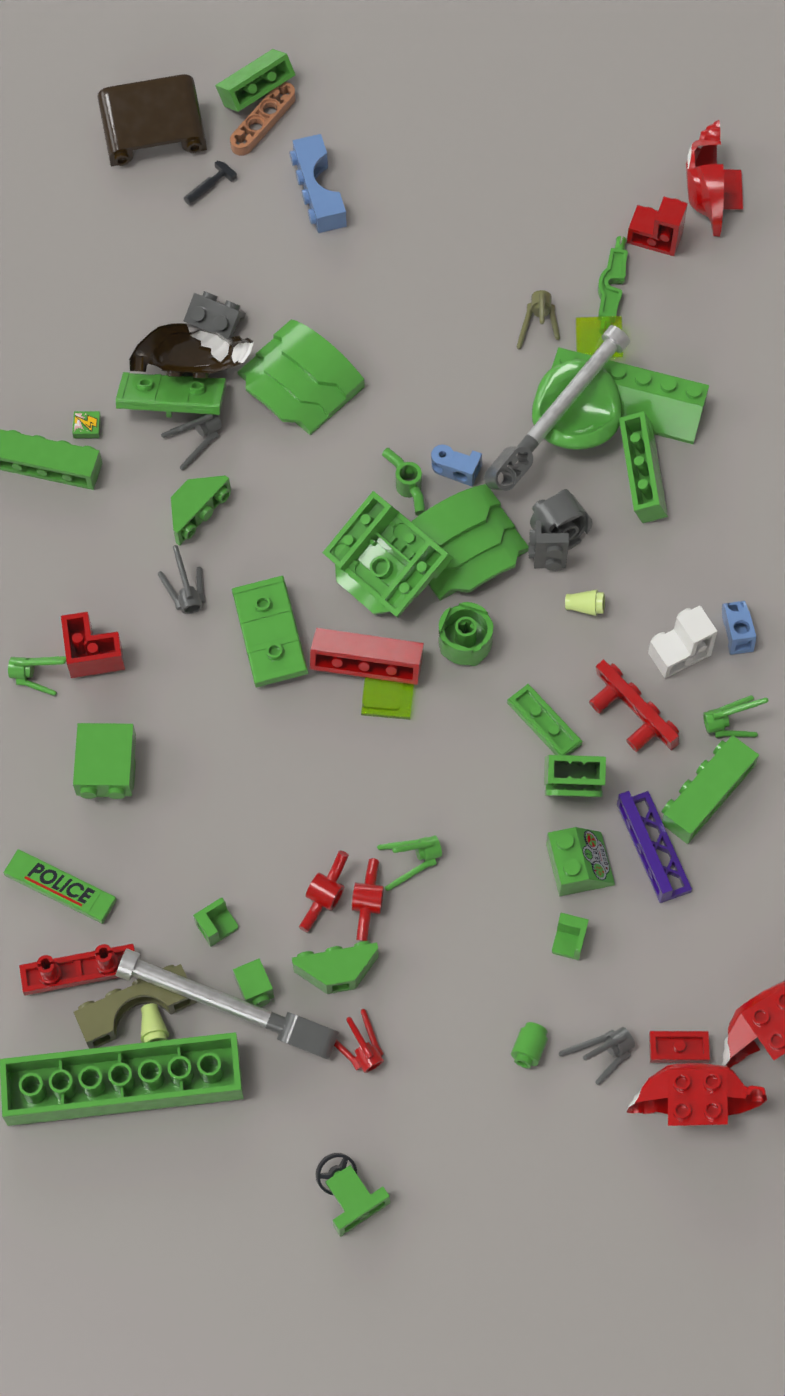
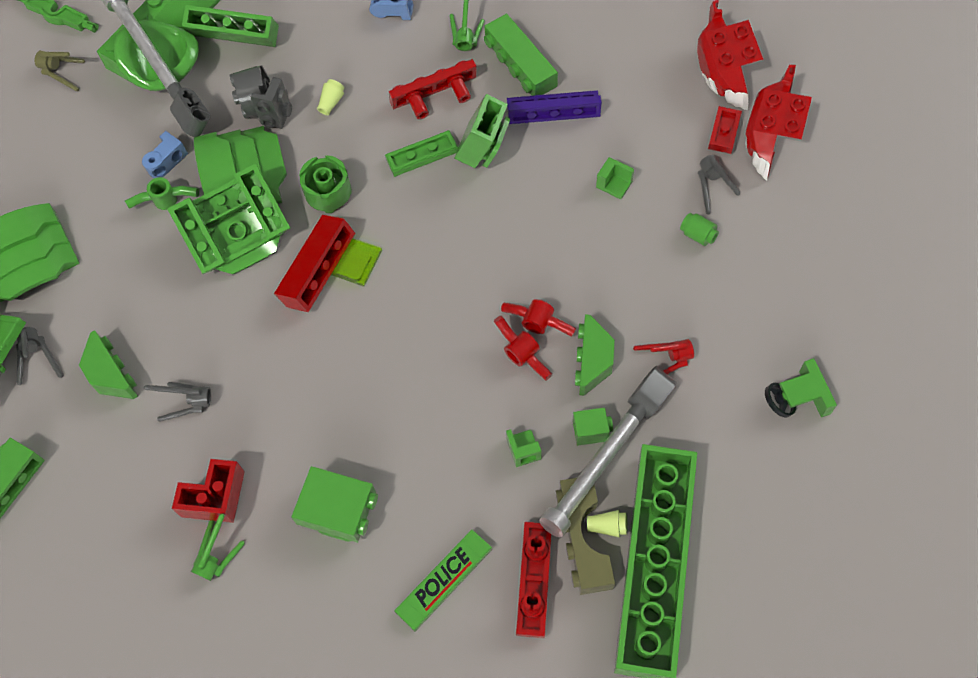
camera: 70 degrees left, 0 degrees up
(269, 631) = (259, 336): bright green container -> none
(425, 848) = (507, 263): bright green plant -> none
(578, 860) = (551, 160): bright green slope -> none
(590, 332) = (97, 27): clear neon green piece -> none
(685, 644) = (392, 36): white brick -> none

